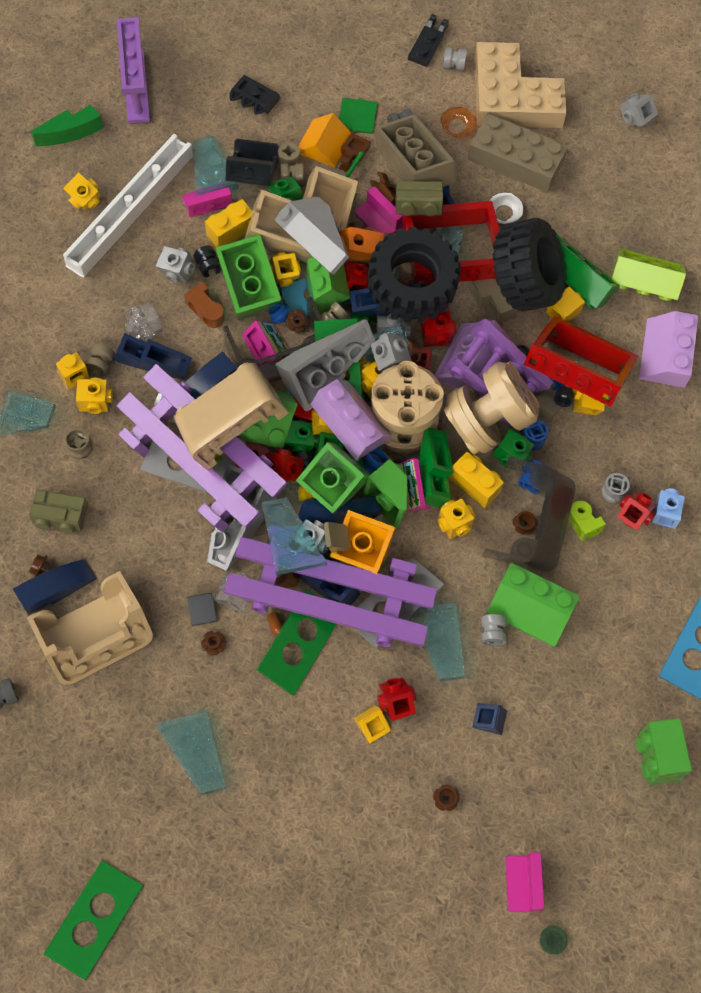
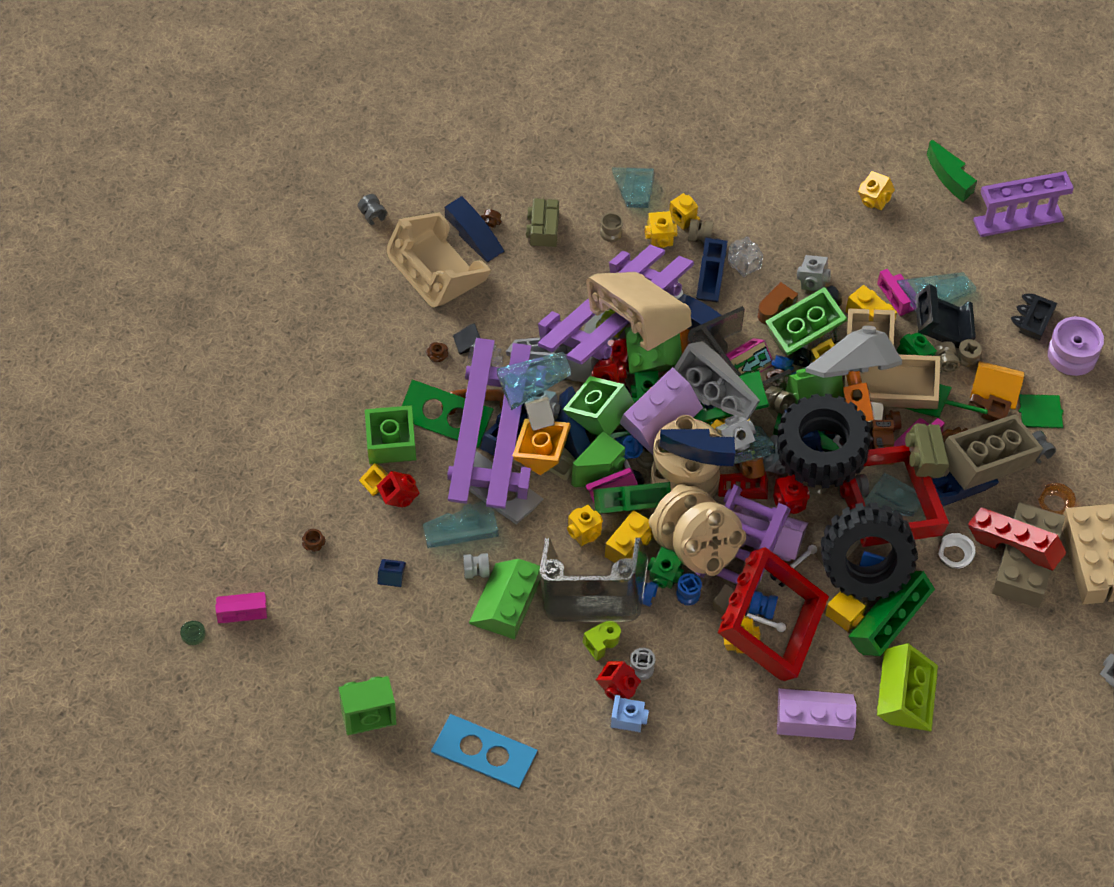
camera: 85 degrees right, 10 degrees down
(83, 959) = (217, 318): green piece -> none
(127, 206) = (875, 230): white tile -> none
(195, 750) = (341, 349): clear light blue wing -> none
(298, 69) = (1075, 346): none -> lavender wheel
(326, 700) = (390, 434): none -> bright green brick
(421, 378) = (699, 446): none -> dark blue slope
(519, 143) = (1037, 544): none -> red arch

